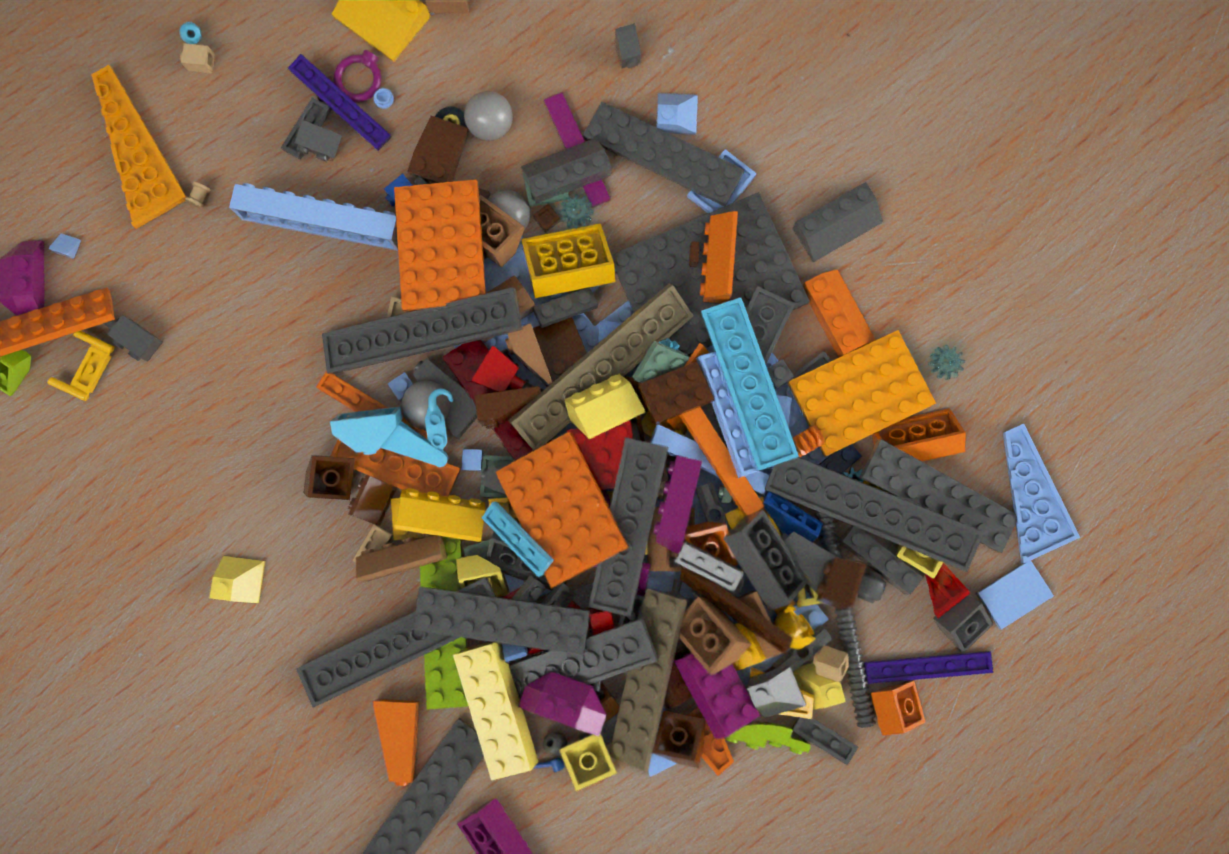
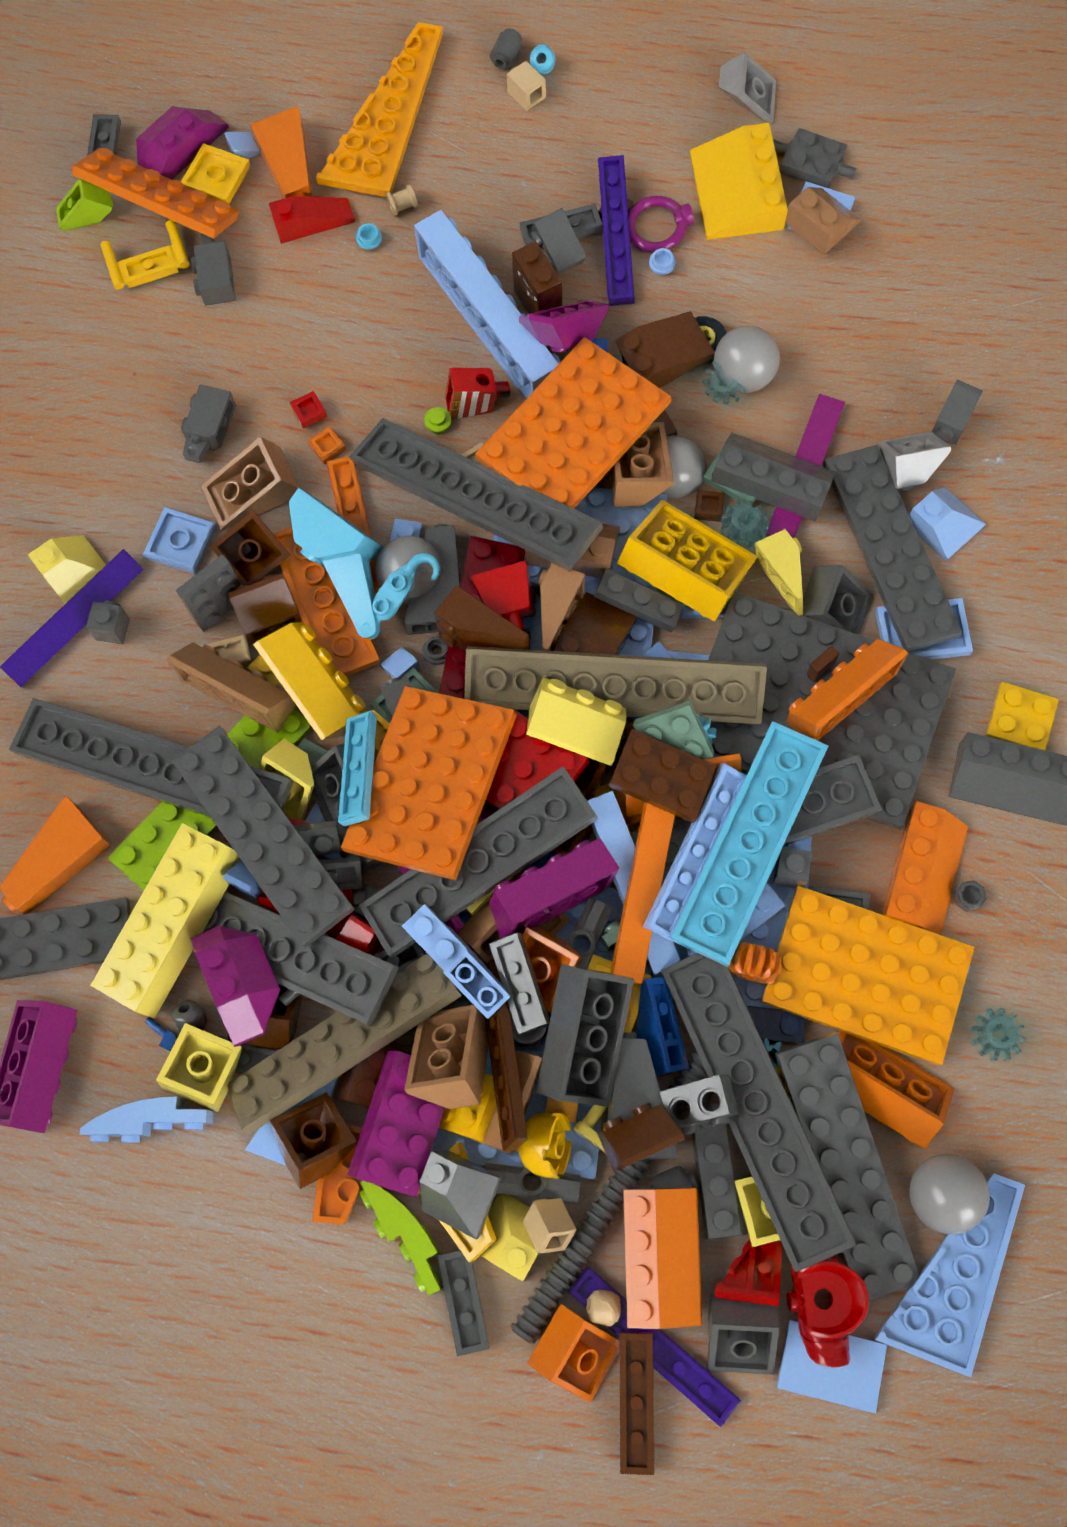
camera: 50 degrees right, 10 degrees down
(69, 277) = (216, 173): none -> yellow plate
(96, 227) = (284, 151): none -> orange slope
(153, 252) = (308, 215): none -> red slope
(162, 45) = (506, 49): none -> dark grey brick
(201, 234) = (368, 236): none -> medium azure plate
(225, 428) = (207, 421): none -> dark grey hinge
(268, 606) = (70, 618): none -> dark purple tile
(274, 367) = (308, 409): none -> red plate
(281, 507) = (180, 540): none -> light blue tile
(288, 440) = (251, 481): none -> medium nougat slope
(292, 589) = (108, 622): none -> dark grey brick
(305, 377) = (326, 445): none -> orange tile
(332, 178) = (535, 279): none -> reddish brown brick
(337, 521) = (208, 592): none -> dark grey plate
(352, 305) = (437, 420): none -> lime plate
(358, 272) = (473, 391): none -> torso
(373, 188) = (566, 324): none -> magenta wedge
(477, 434) = (429, 646): none -> dark grey plate
(485, 144) = (717, 388): none -> clear light blue gear
(581, 819) = (135, 1120): none -> light blue slope
(616, 215) = (781, 562): none -> light yellow slope
(628, 91) = (913, 458): none -> light grey slope
(662, 211) = (836, 598): none -> dark grey slope
(668, 585) = (457, 961): none -> light blue slope
(811, 186) = (1021, 716): none -> yellow plate
(845, 535) = (698, 1097): none -> dark grey brick
(871, 304) = (970, 896): none -> dark grey tile
(892, 674) = (603, 1307): none -> tan piece
(898, 625) = (662, 1258): none -> orange slope
(947, 700) = (636, 1403): none -> reddish brown plate
(996, 463) = (949, 1194): none -> light grey piece
(1001, 582) = (827, 1330): none -> red piece

